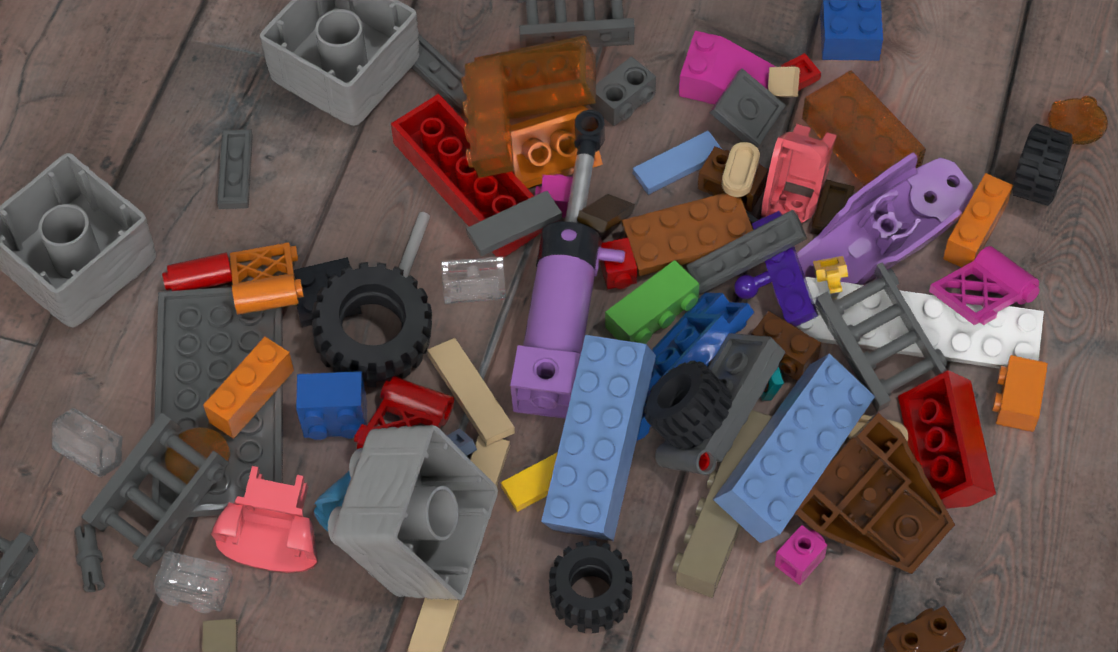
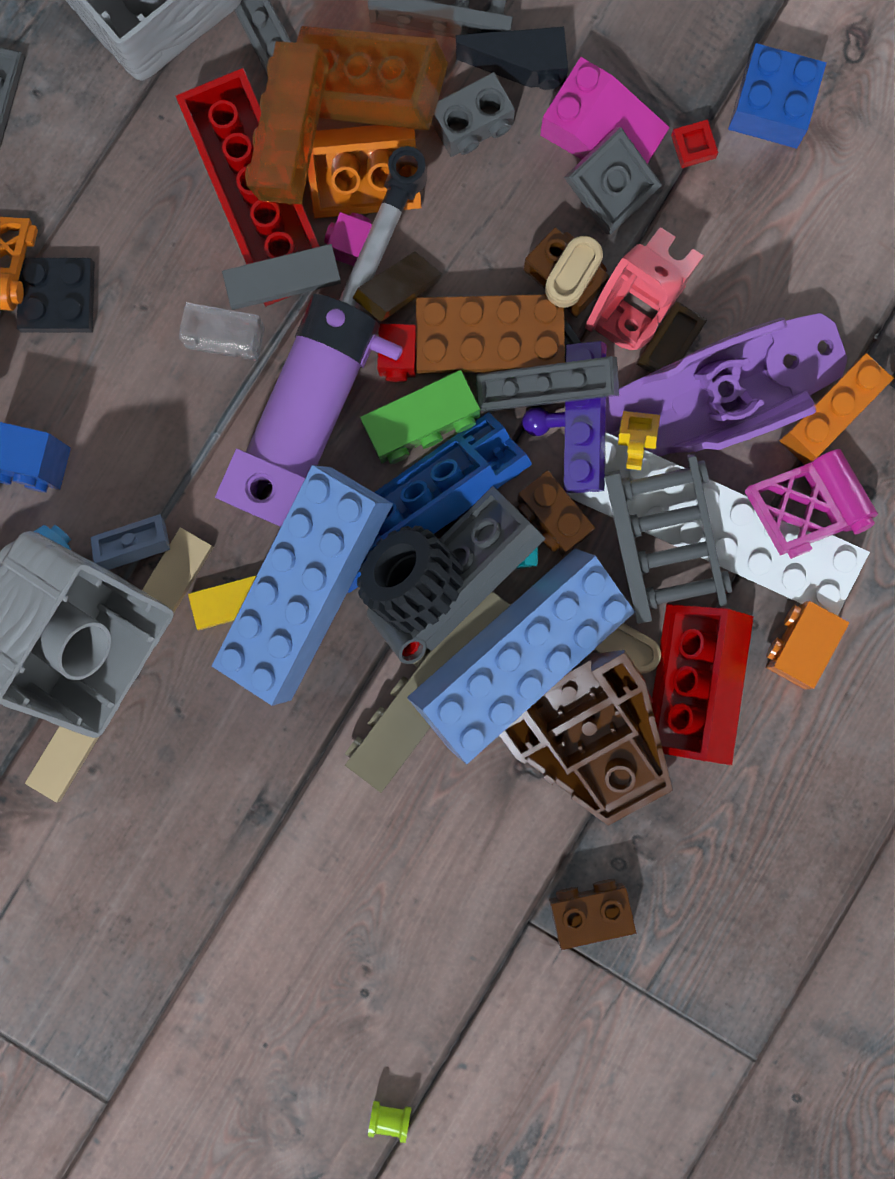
camera: 20 degrees right, 25 degrees up
(377, 287) = (37, 353): black tyre -> none
(412, 404) = (114, 470): red piece -> none
(414, 243) = (166, 268): light grey bar -> none
(471, 391) = (184, 471): tan tile -> none
(586, 562) = (216, 758): black tyre -> none
(650, 44) = (521, 56): none -> black slope
(675, 163) = (508, 229): medium blue tile -> none
(784, 81) = (668, 154): tan tile -> none
(801, 554) = (493, 774): dark pink brick -> none
(866, 130) = (741, 250): clear orange brick -> none

